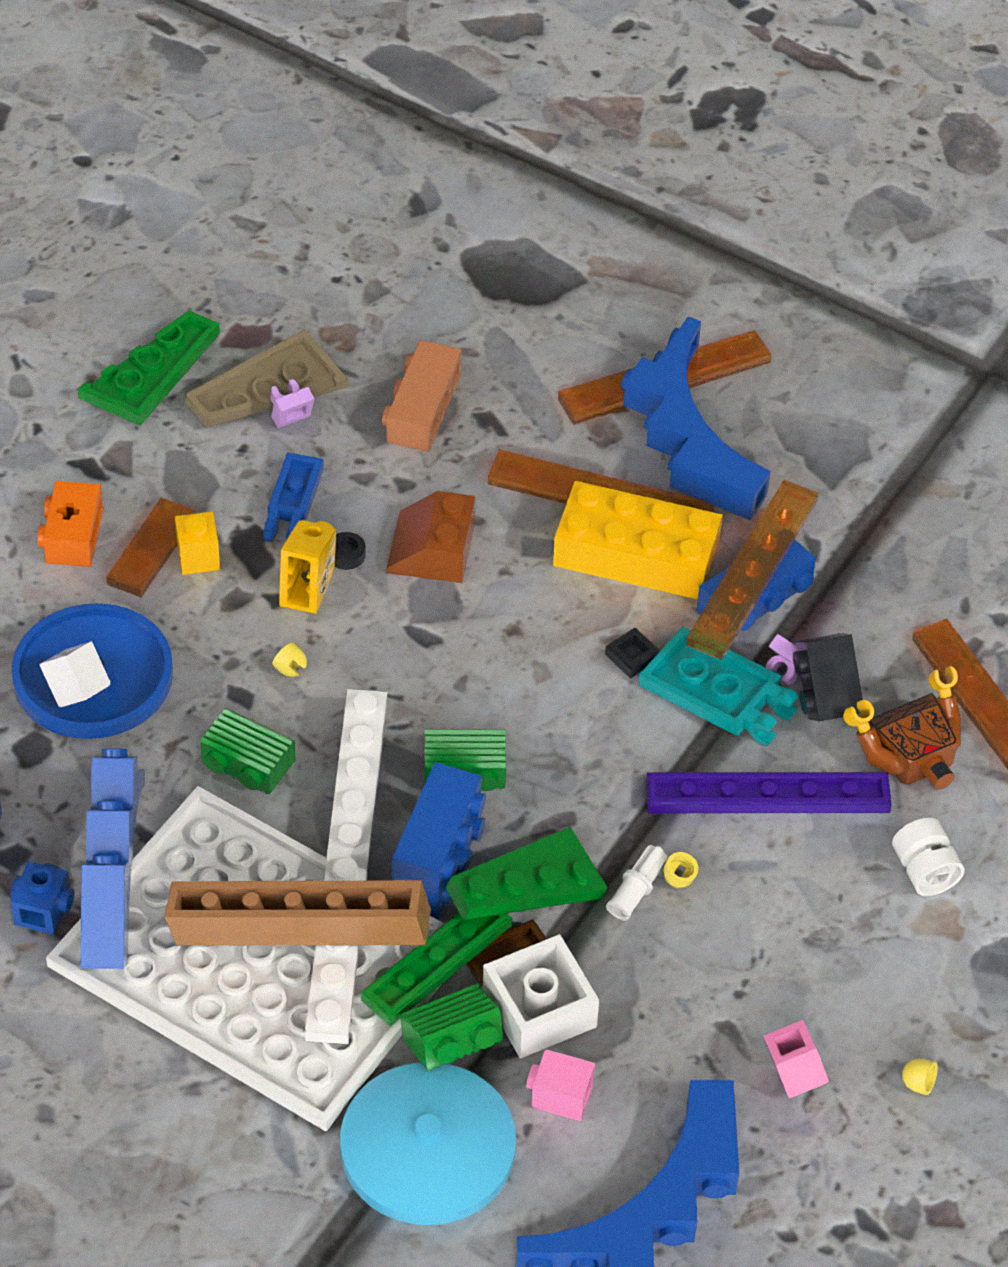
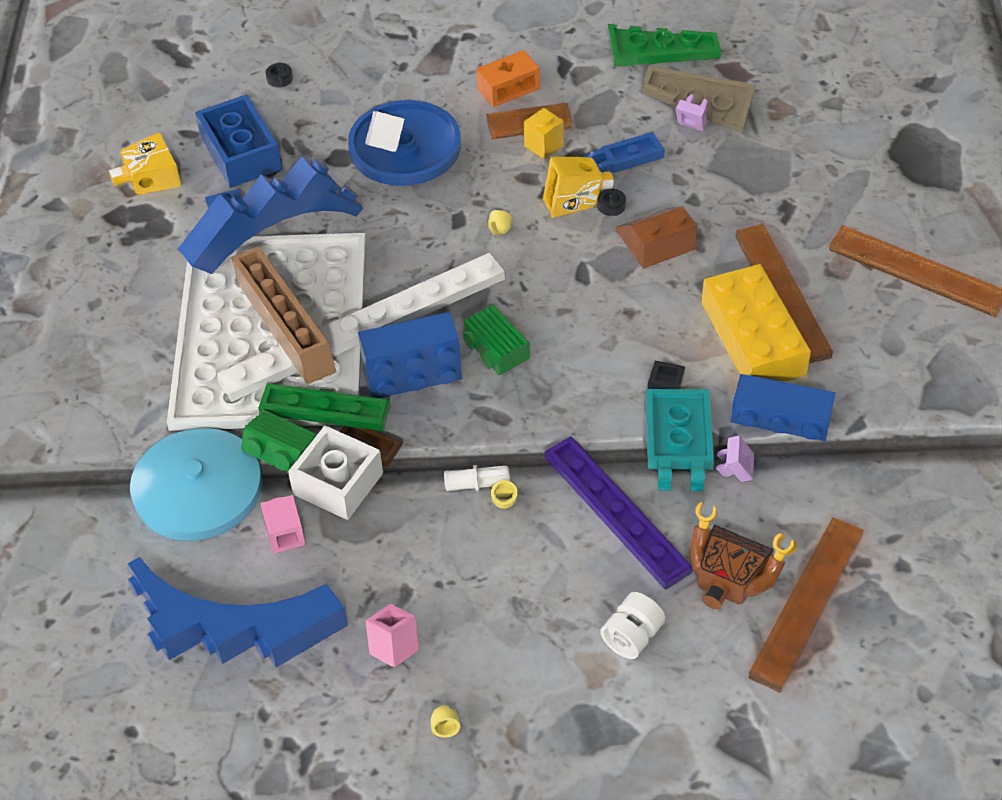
camera: 60 degrees right, 0 degrees up
(247, 751) = (411, 240): green brick -> none
(422, 395) = (766, 165): nougat brick -> none
(528, 878) = (425, 419): green wing -> none
(699, 458) = (867, 289): blue arch -> none
(752, 570) = (780, 391): clear orange tile -> none
(827, 676) = (729, 482): black brick -> none

